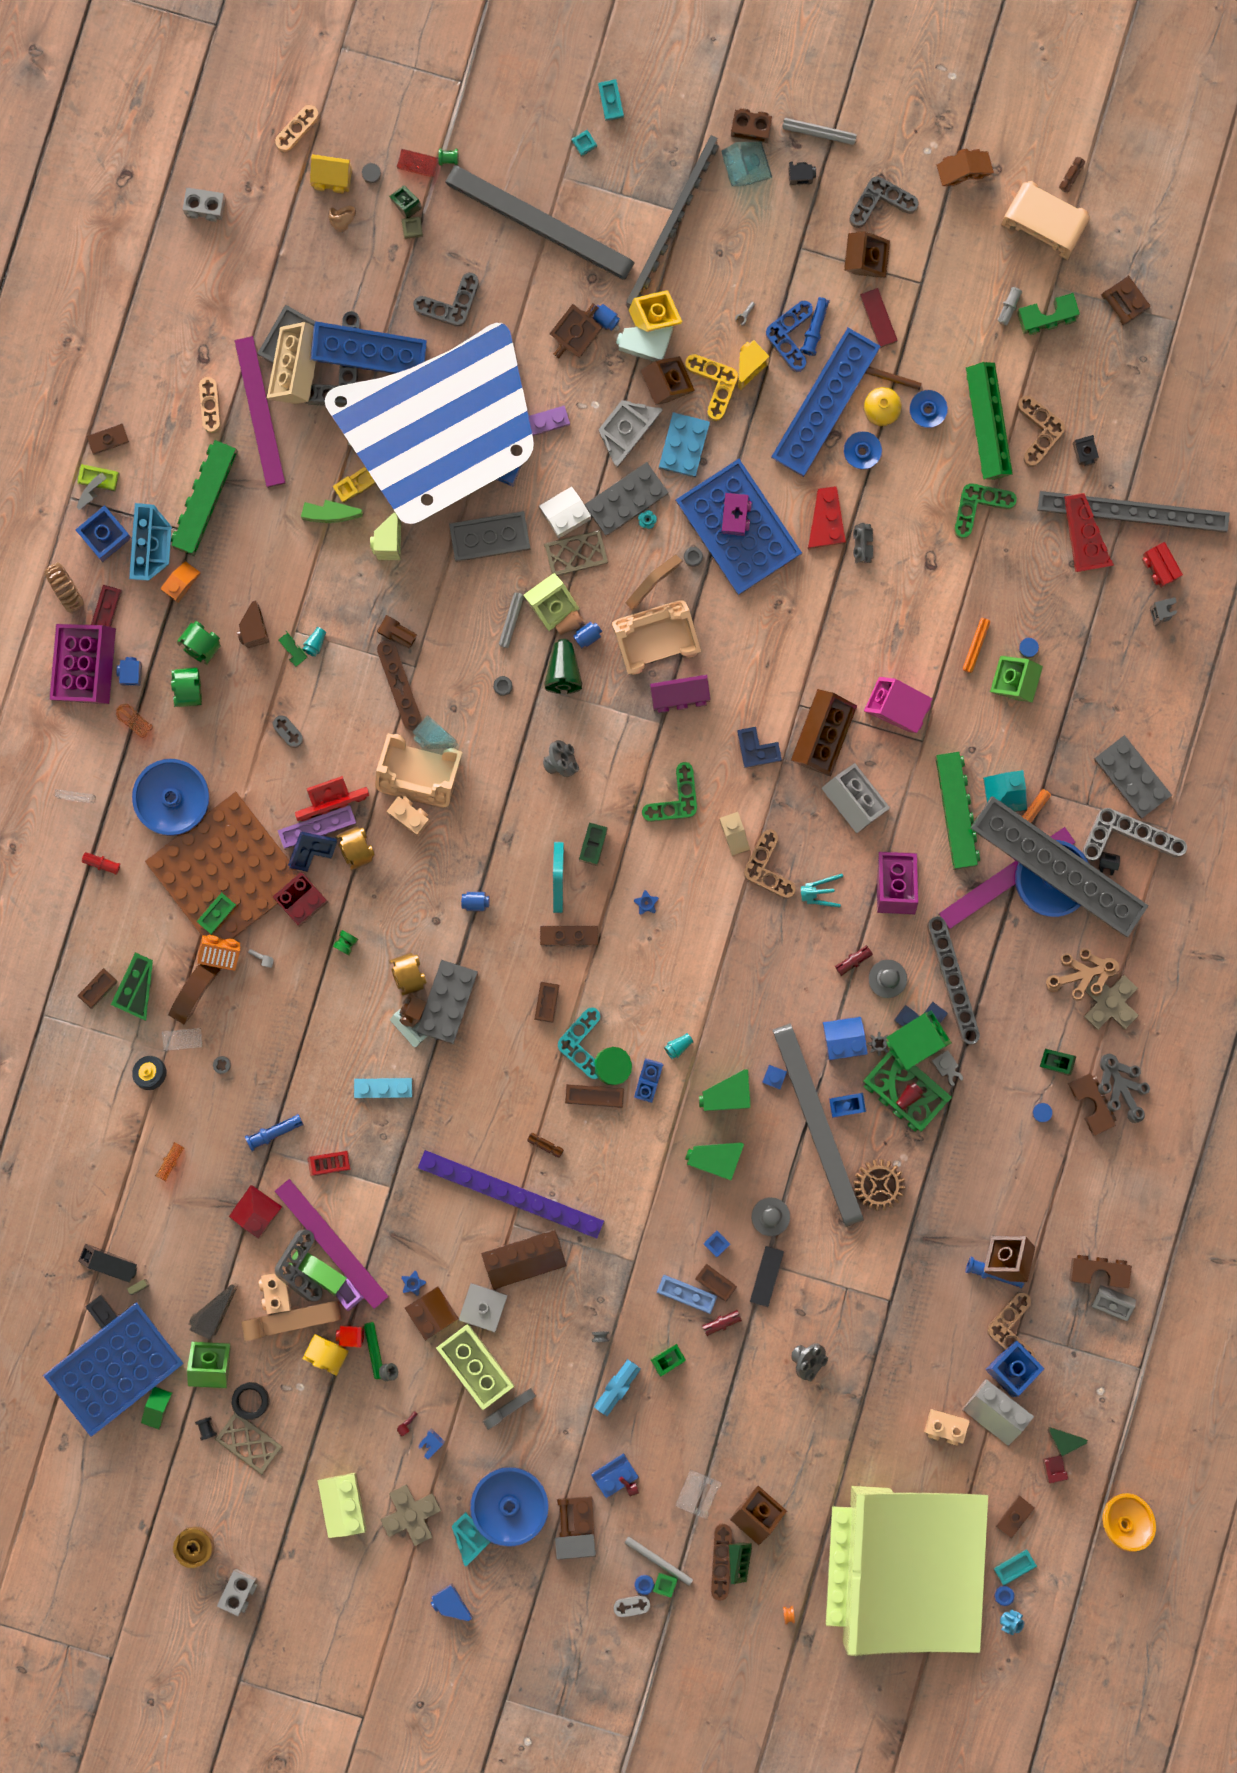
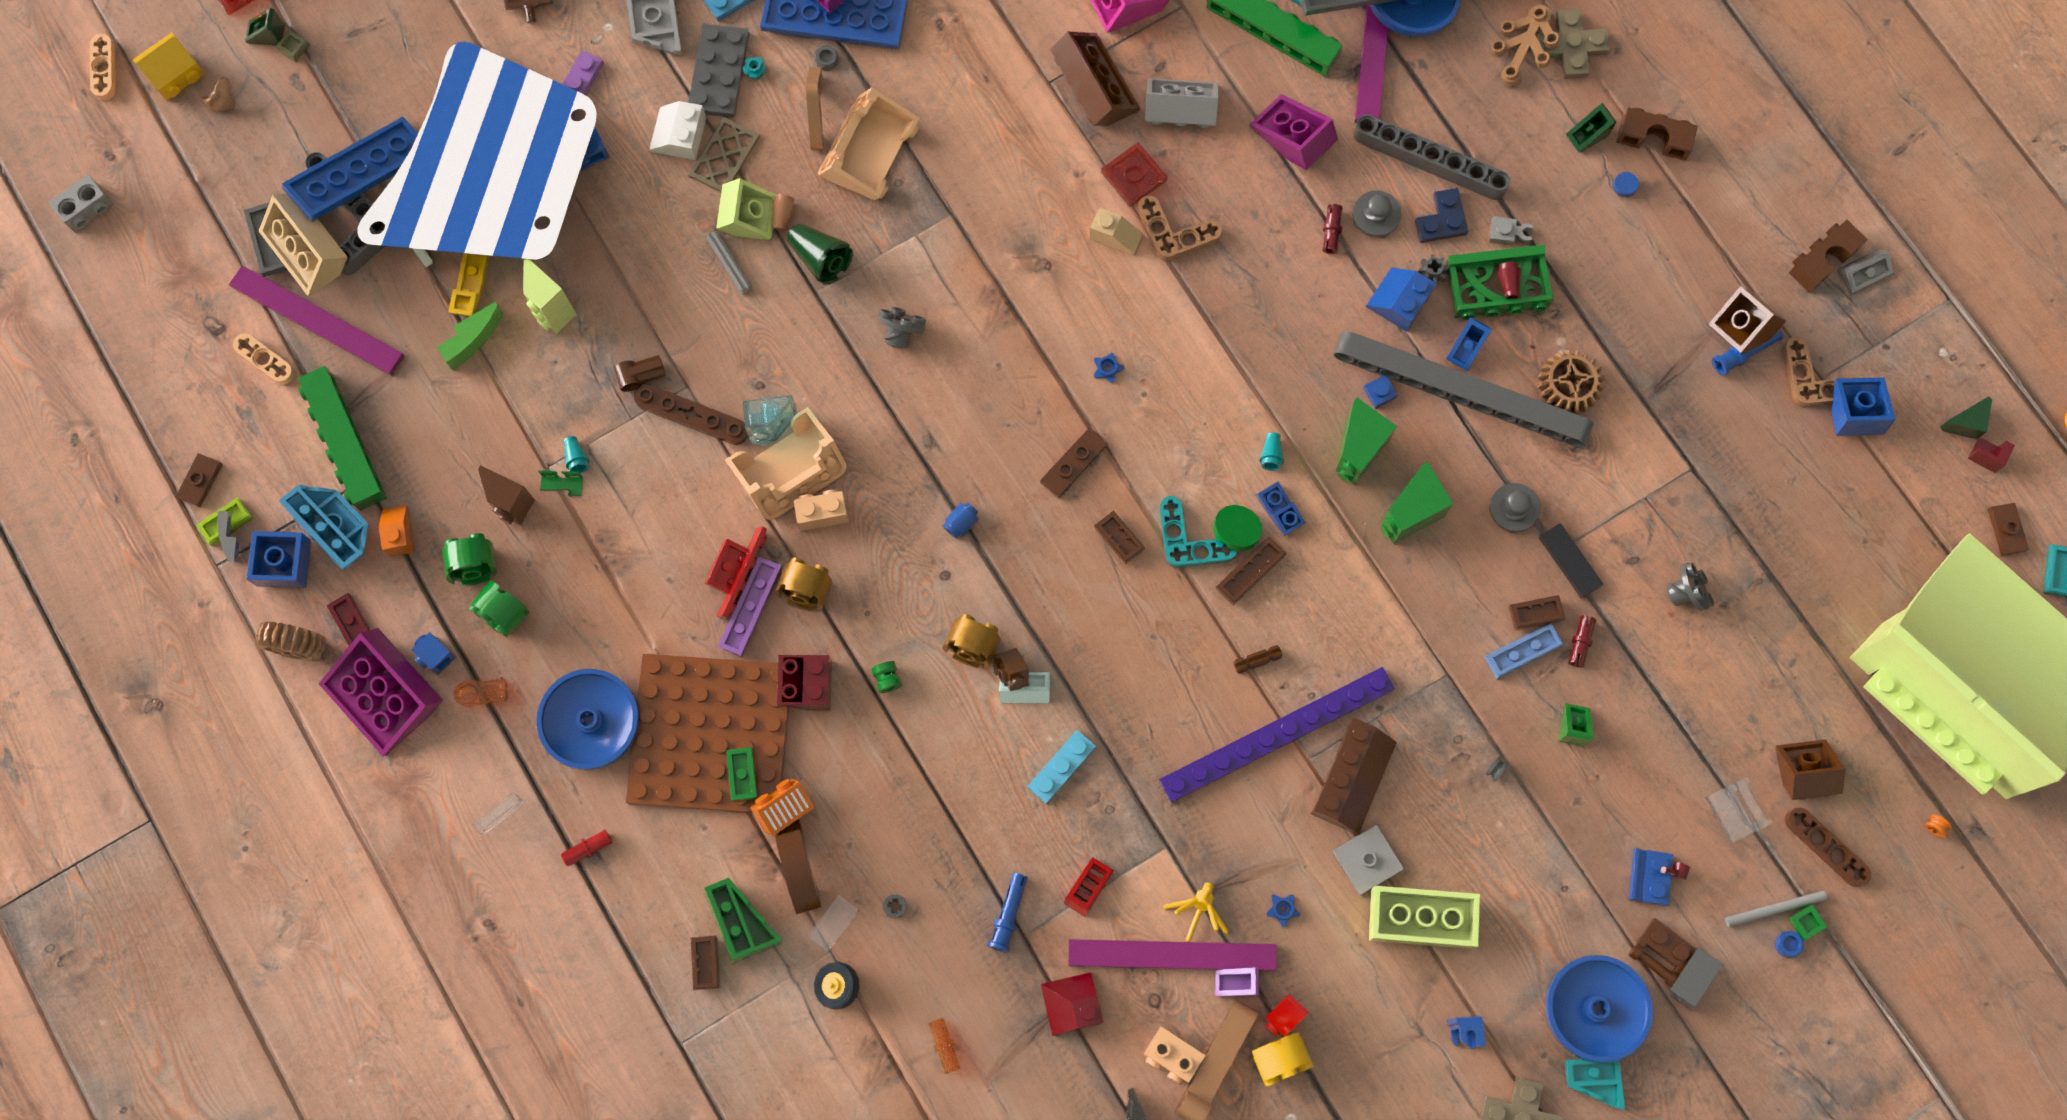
camera: 50 degrees left, 10 degrees down
(266, 960) = (833, 769): light grey hand -> none
(291, 728) = (634, 560): dark grey beam -> none
(293, 1271) = (1168, 1015): dark grey beam -> none
(308, 846) = (760, 630): dark blue plate -> none
(321, 1273) = (1189, 993): bright green slope -> none
(371, 173) = (208, 38): dark grey tile -> none
(373, 1347) = (1320, 1008): green axle -> none
(374, 1234) = (1202, 902): none -> yellow plant
(383, 1372) = (1354, 1011): dark grey bush -> none
(402, 1428) = (1424, 1050): dark red hand -> none
(431, 1313) = (1330, 916): reddish brown slope -> none
(447, 1002) = (1034, 630): dark grey plate -> none
(450, 310) = (399, 74): dark grey beam -> none
(489, 536) = (633, 214): dark grey plate -> none
(497, 1416) = (1496, 940): dark grey beam -> none
(502, 686) = (782, 322): dark grey tile -> none
(558, 862) = (1009, 414): teal beam -> none
(587, 634) = (808, 205): blue brick -> none
(593, 844) = (1008, 363): dark green brick -> none
(617, 1387) = (1563, 796): dark azure piece -> none
(633, 1610) = (1808, 977): light grey beam -> none
(678, 805) = (1042, 259): green beam -> none
(680, 693) = (939, 167): magenta slope -> none
(716, 1243) = (1498, 579): blue plate -> none
(739, 1557) = (1840, 824): dark green slope -> none
(756, 754) = (1058, 153): dark blue plate -> none
(782, 811) = (1134, 174): none -> clear red plate
(809, 892) = (1233, 214): teal plant -> none
(918, 1040) = (1465, 225): green slope -> none
(946, 1426) = (1865, 516): light nougat brick -> none
(997, 1412) = (1890, 457): light grey slope -> none
(1122, 1085) = (1662, 96): dark grey plant -> none

